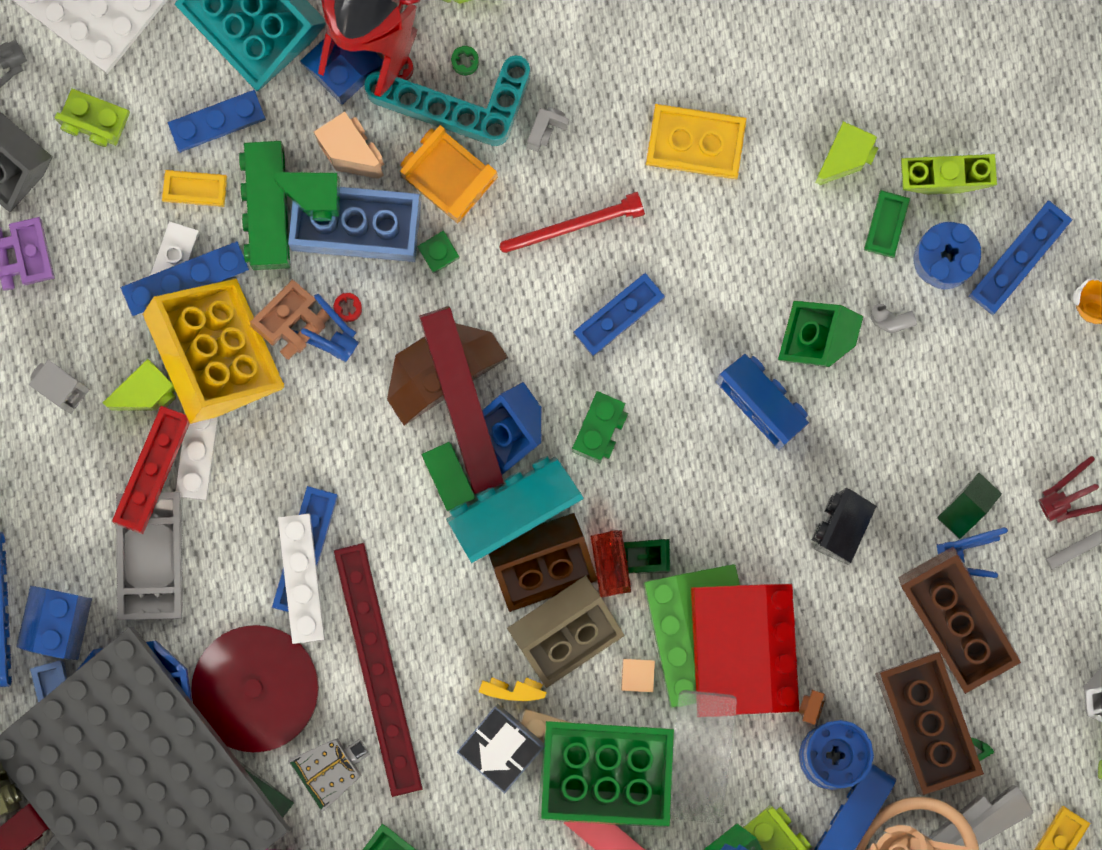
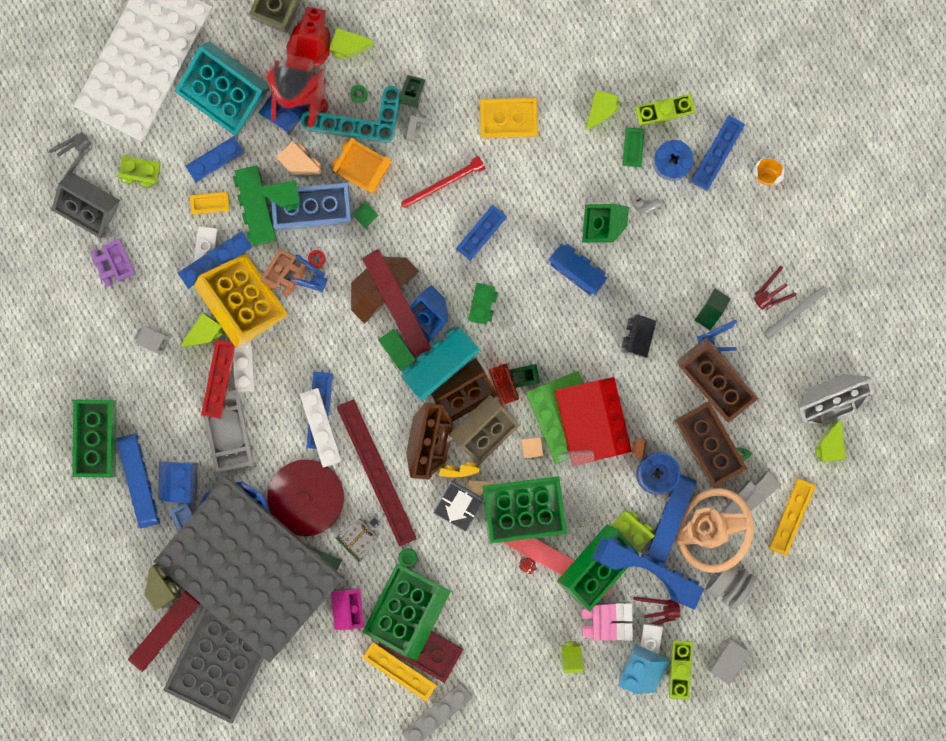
camera: 10 degrees left, 5 degrees up
(402, 818) = (408, 558): none -> green tile
(472, 632) = (428, 440): none -> reddish brown wedge
(549, 72) = (412, 91): none -> dark green slope

